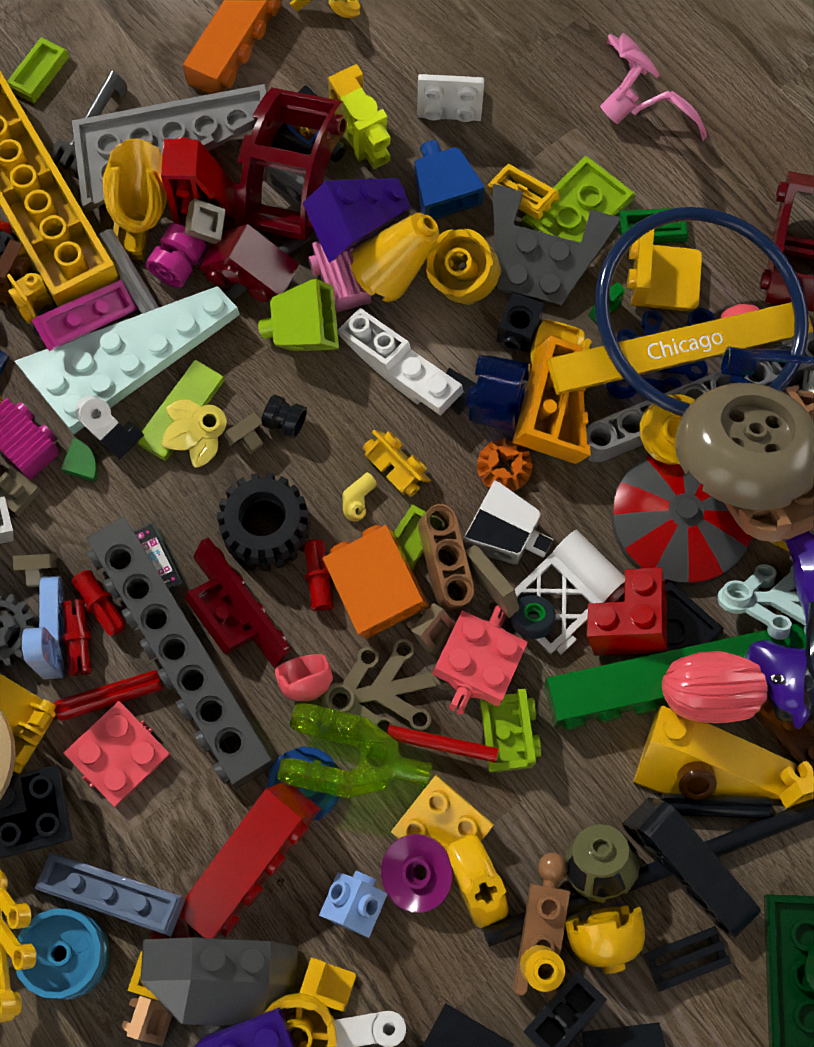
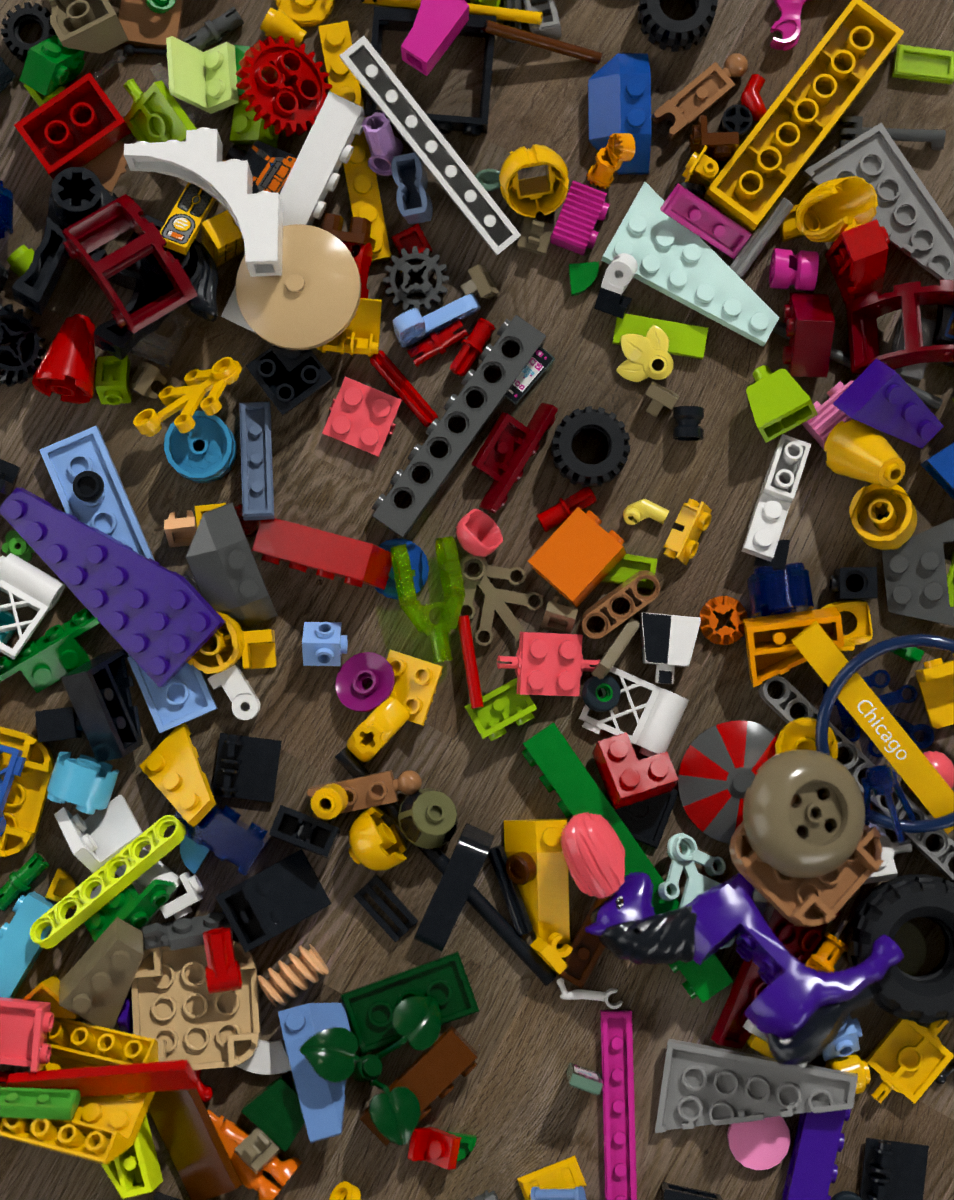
camera: 65 degrees right, 15 degrees up
(204, 221) = (829, 281): dark tan tile -> none

